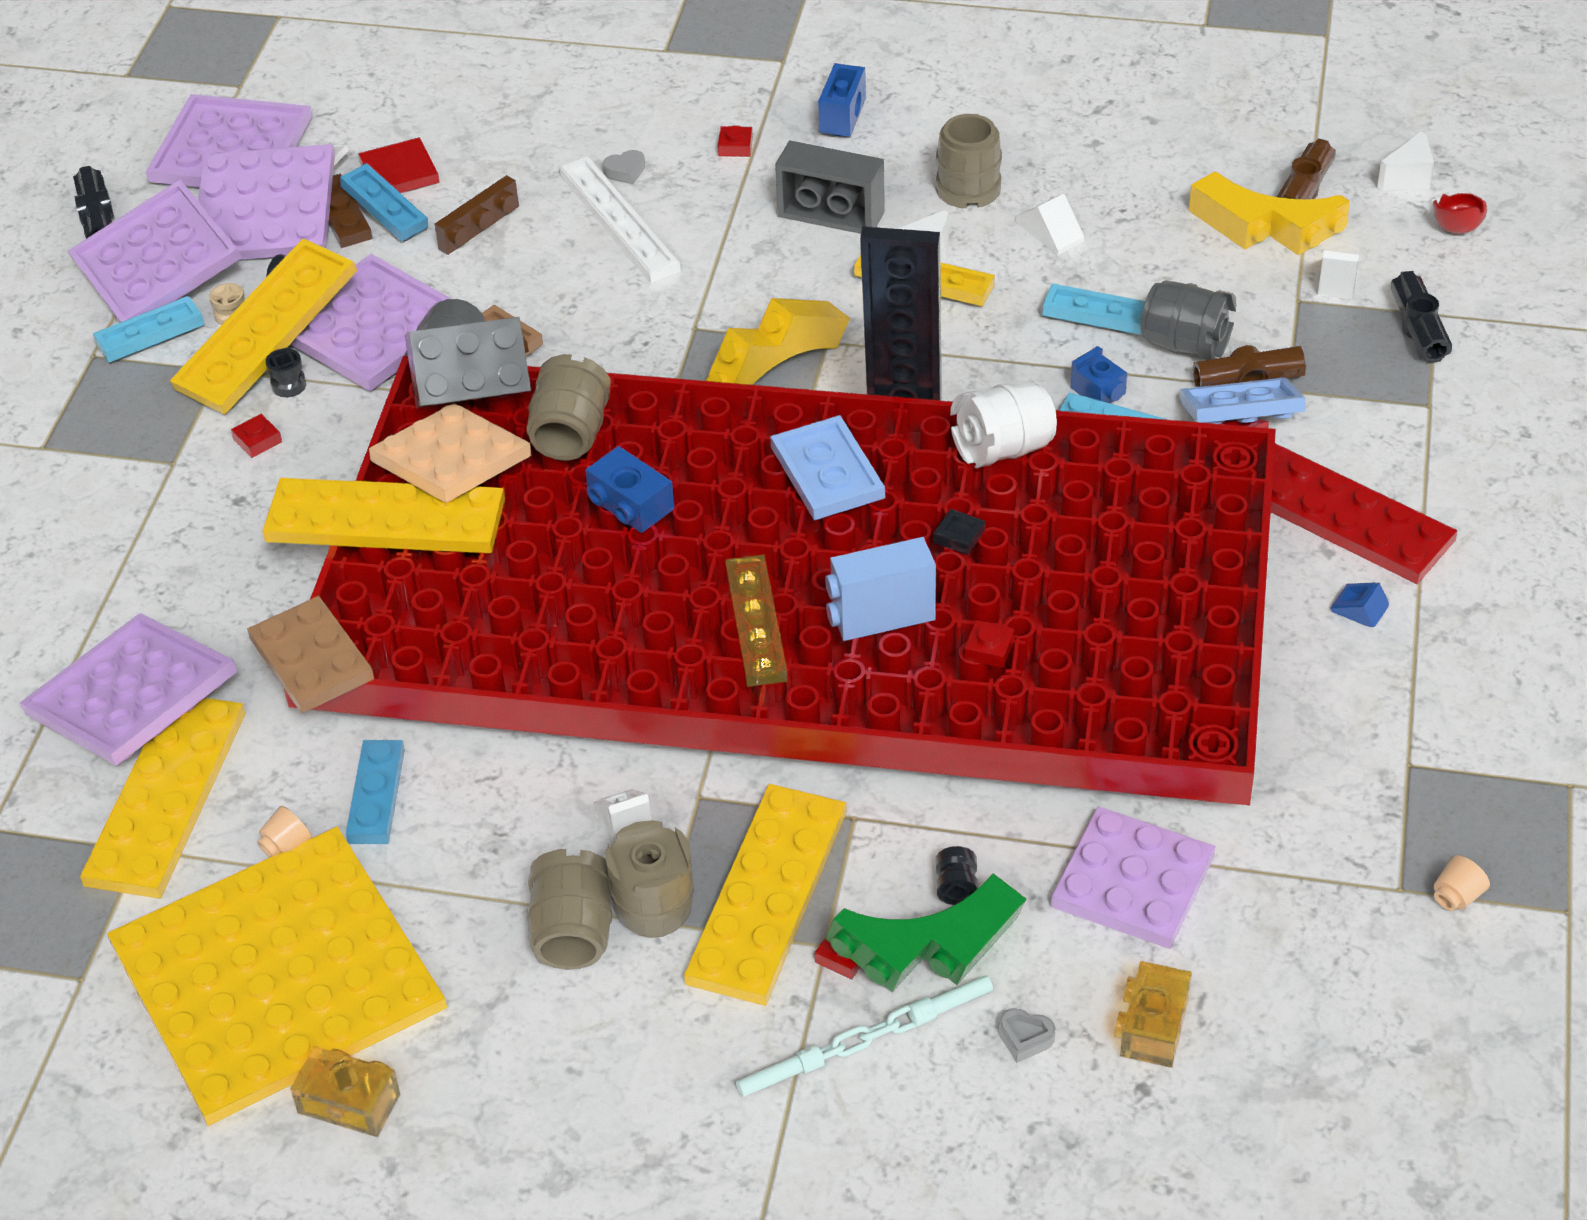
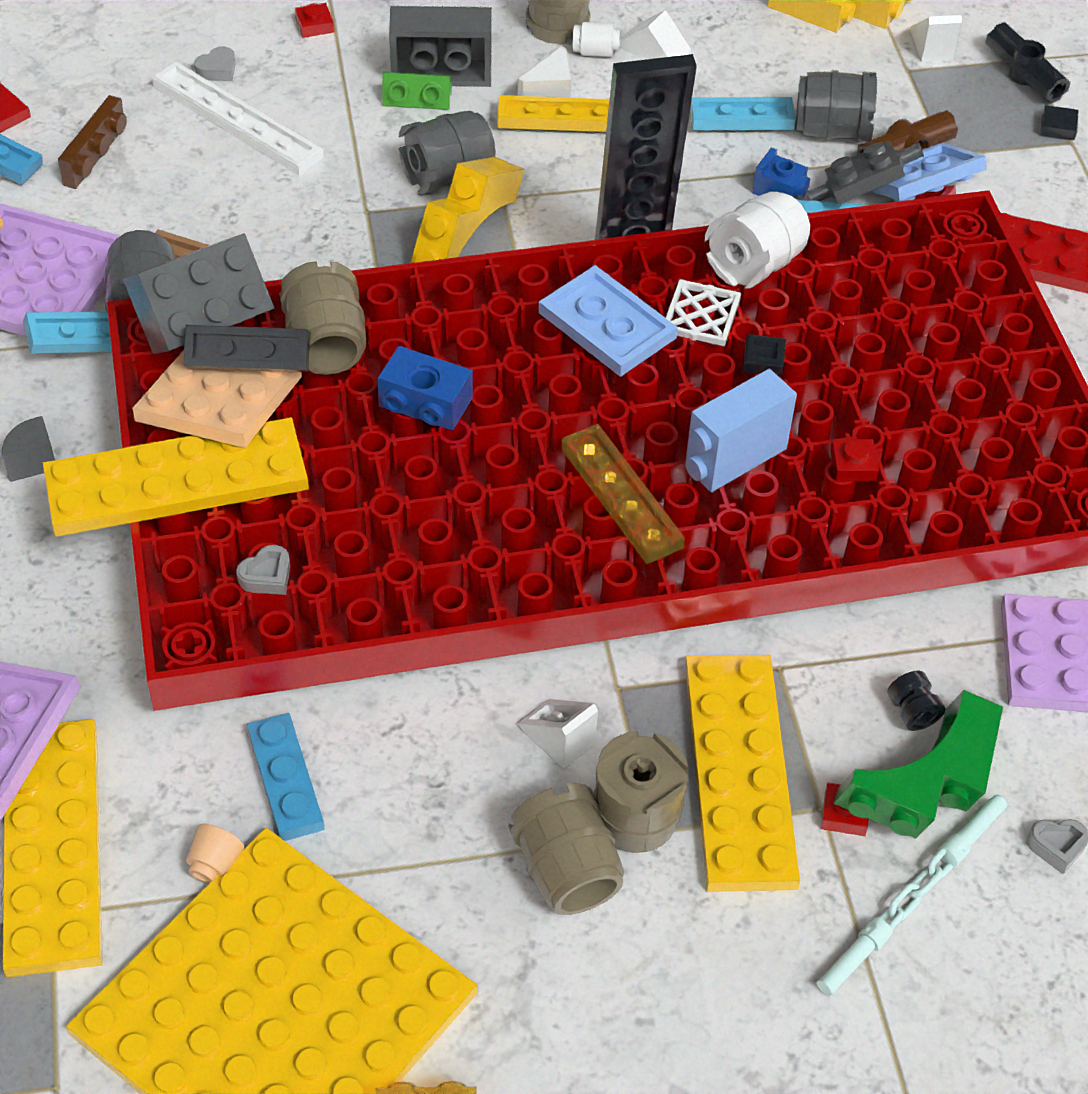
camera: 25 degrees left, 5 degrees up
(293, 462) = (27, 449): none -> dark grey brick
(310, 654) = (171, 649): medium nougat plate -> none
(362, 375) = (67, 332): none -> medium azure plate
(418, 612) = (265, 572): none -> light grey tile
(482, 418) = (247, 348): none -> black plate
(786, 277) = (441, 143): none -> dark grey piece
(793, 225) = (416, 90): none -> bright green hinge
(939, 463) = (707, 291): none -> white window
(991, 209) = (596, 39): none -> white brick
(1178, 388) = (864, 172): none -> dark grey plate
(1425, 383) = (1059, 122): none -> black tile

